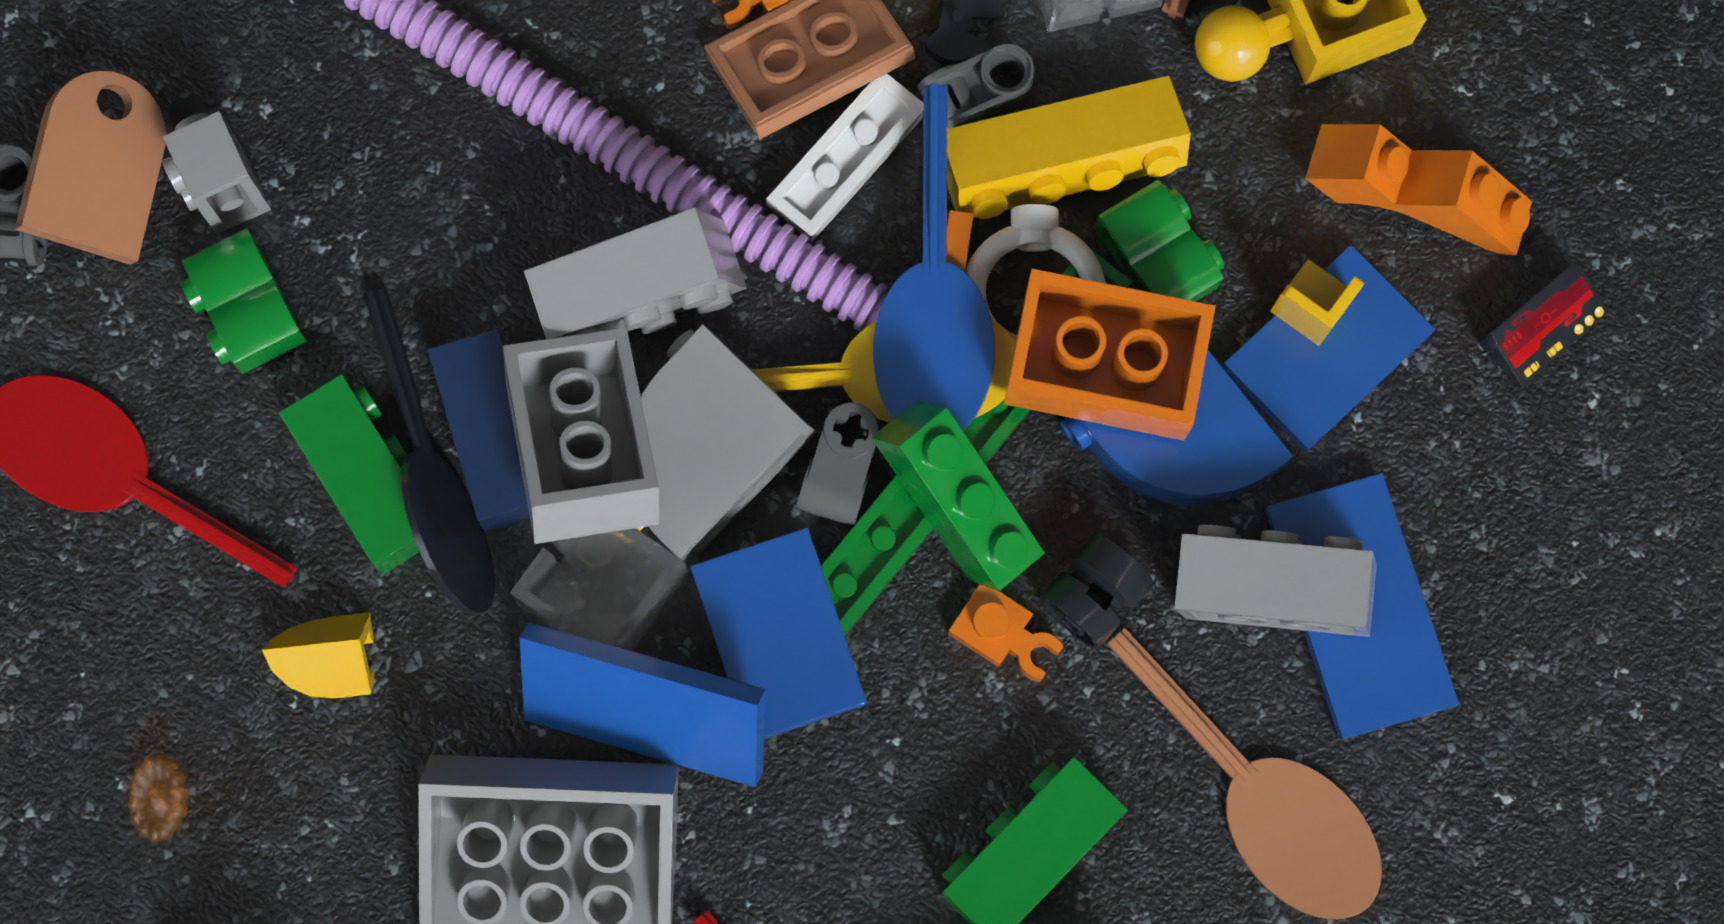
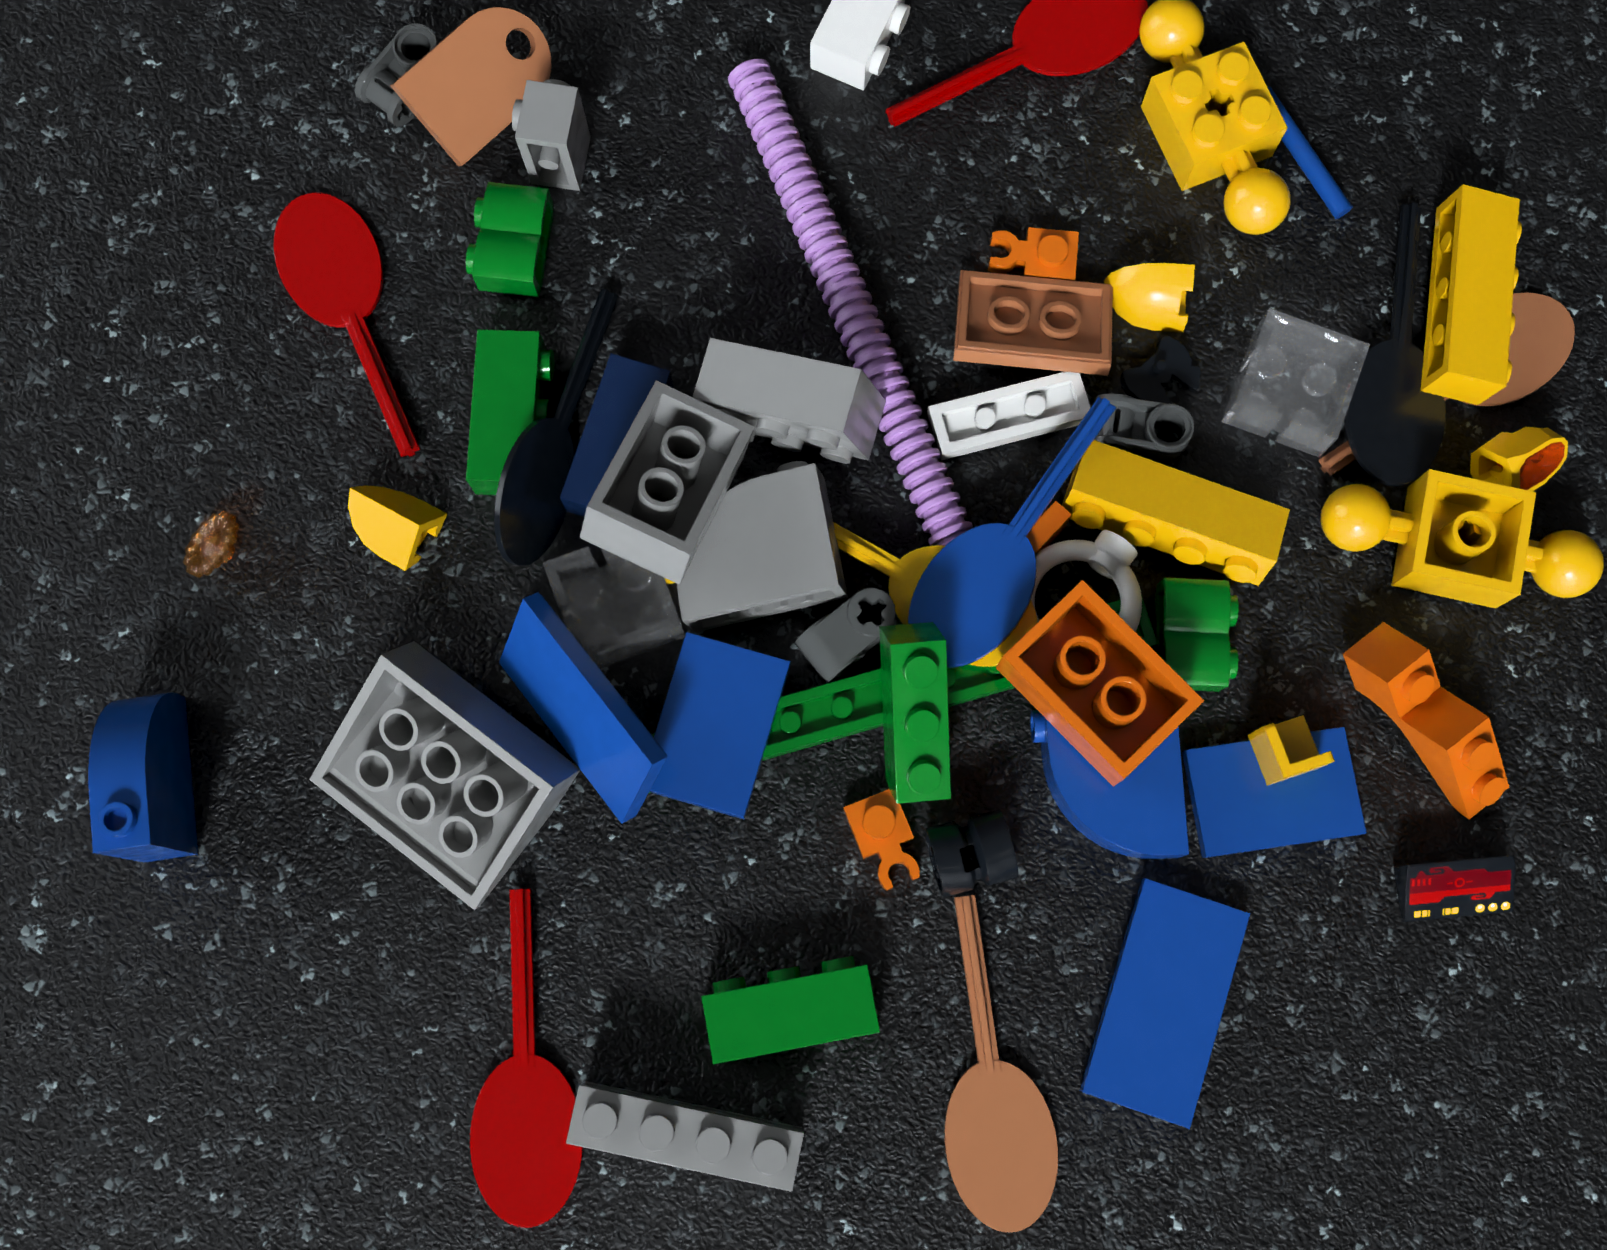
camera: 40 degrees right, 0 degrees up
(1276, 581) = (1110, 939): light grey brick -> none

